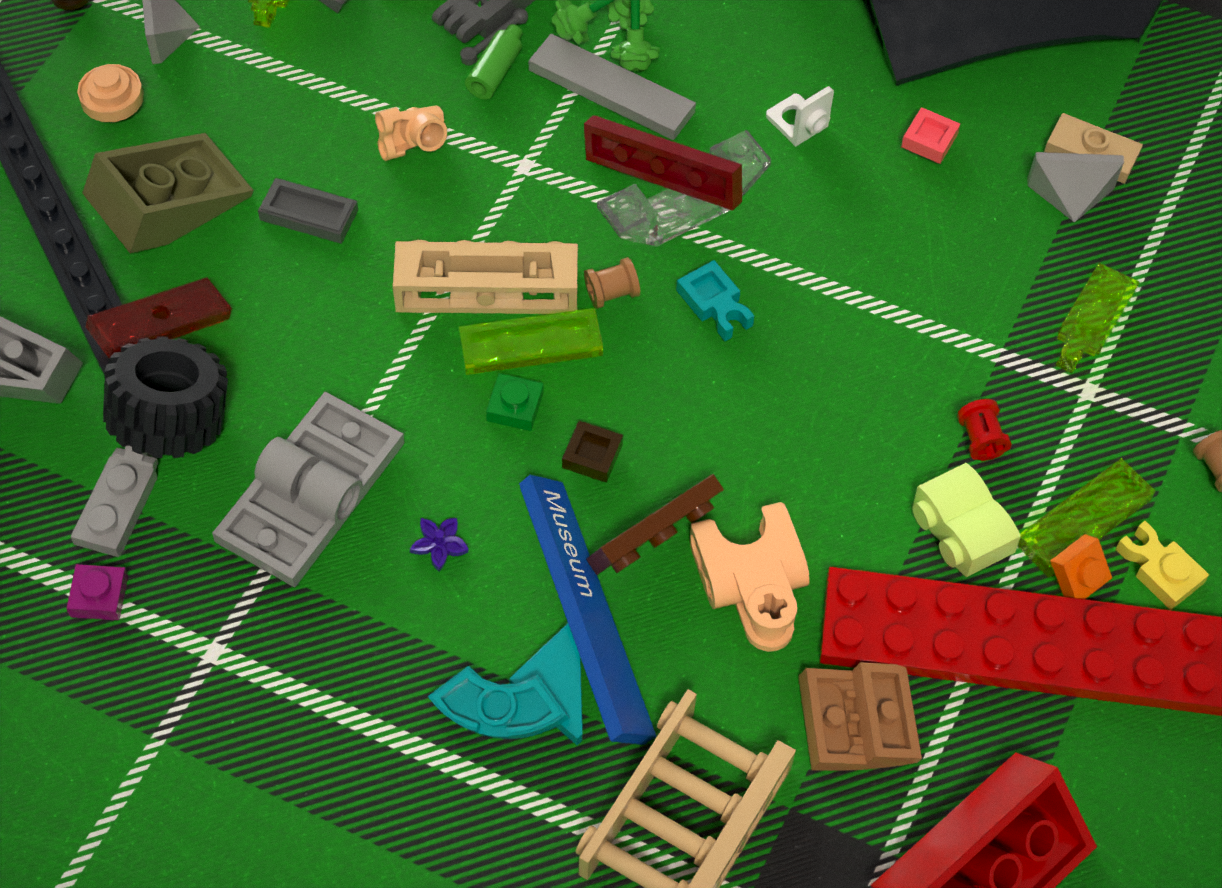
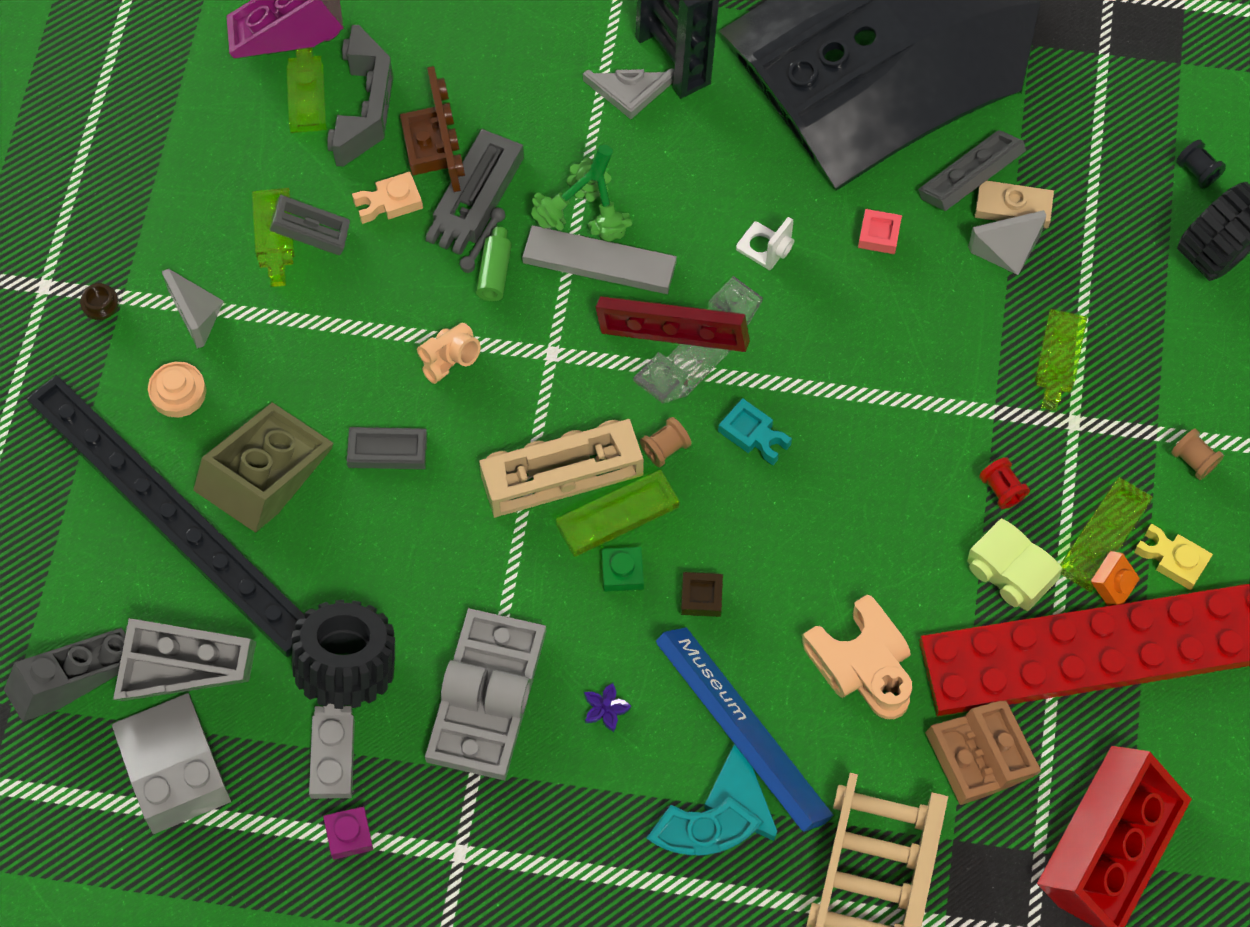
camera: 15 degrees left, 5 degrees up
(159, 315) = (308, 585): clear red tile -> none
(656, 527) = (776, 644): reddish brown plate -> none
(1056, 100) = (972, 170): none -> dark grey tile

